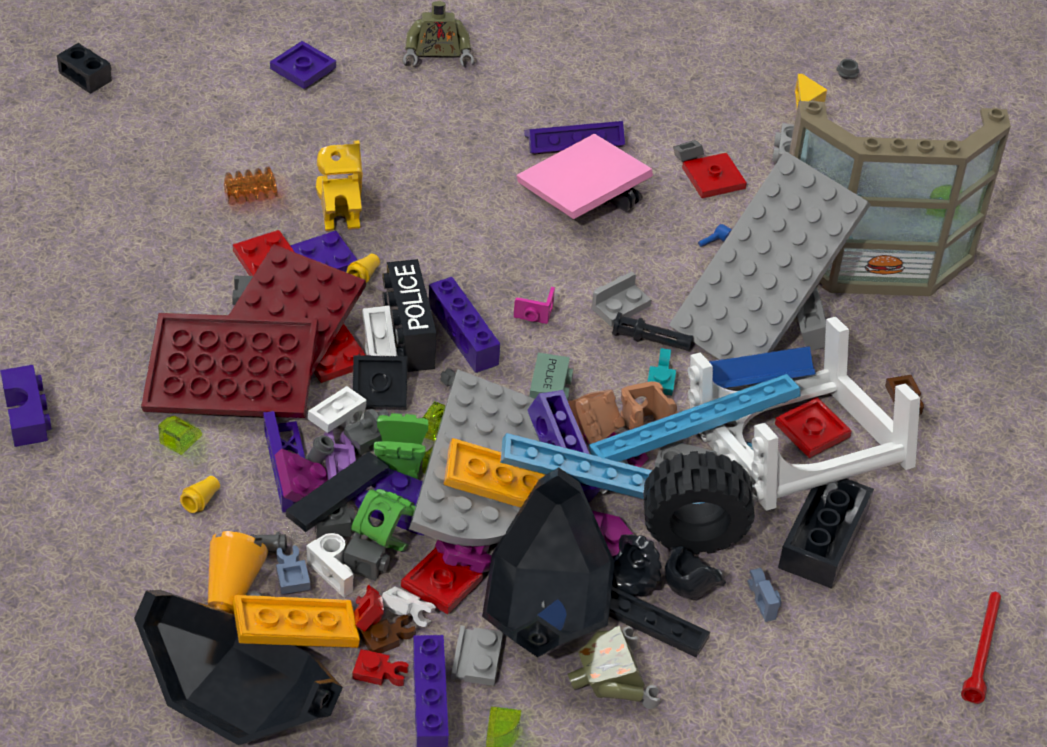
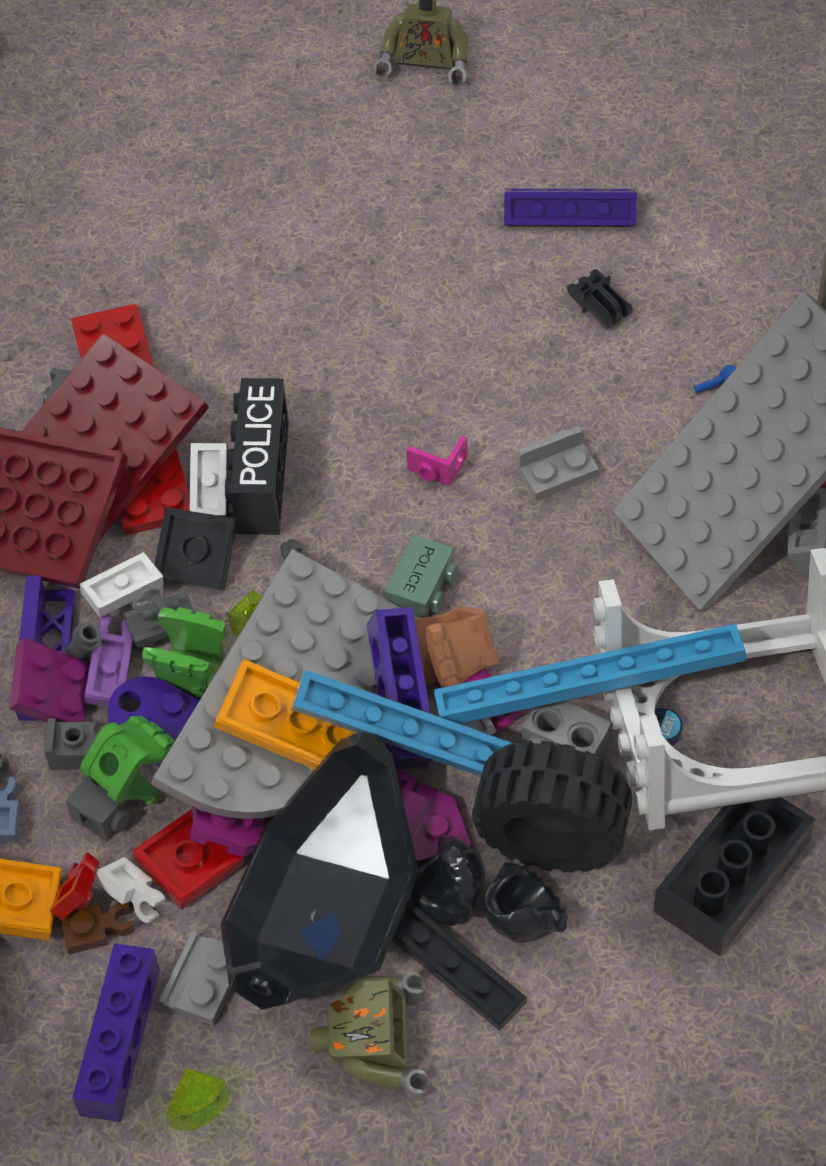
camera: 20 degrees right, 10 degrees up
(250, 184) = (116, 234): clear orange piece -> none
(303, 64) = (241, 62): dark purple plate -> none
(327, 249) = (185, 348): dark purple plate -> none
(327, 559) = (52, 810): white plate -> none
(337, 491) = (81, 709): black tile -> none
(342, 195) = (225, 250): yellow piece -> none
(364, 267) = (226, 375): yellow cone -> none
(375, 667) = (64, 972): red plate -> none
(464, 324) = (331, 476): dark purple brick -> none
(584, 176) = (559, 271): bright pink tile -> none
(654, 404) = (548, 633): nougat piece -> none
(662, 373) = (577, 591): teal plate -> none
(683, 340) = (565, 517): black pin -> none
(688, 150) = (719, 245): dark grey plate -> none
(714, 175) = (746, 286): red plate -> none
(762, 367) = (712, 601): blue panel -> none
(765, 596) = (621, 962): sand blue plate -> none
(813, 427) = (767, 699): red plate -> none

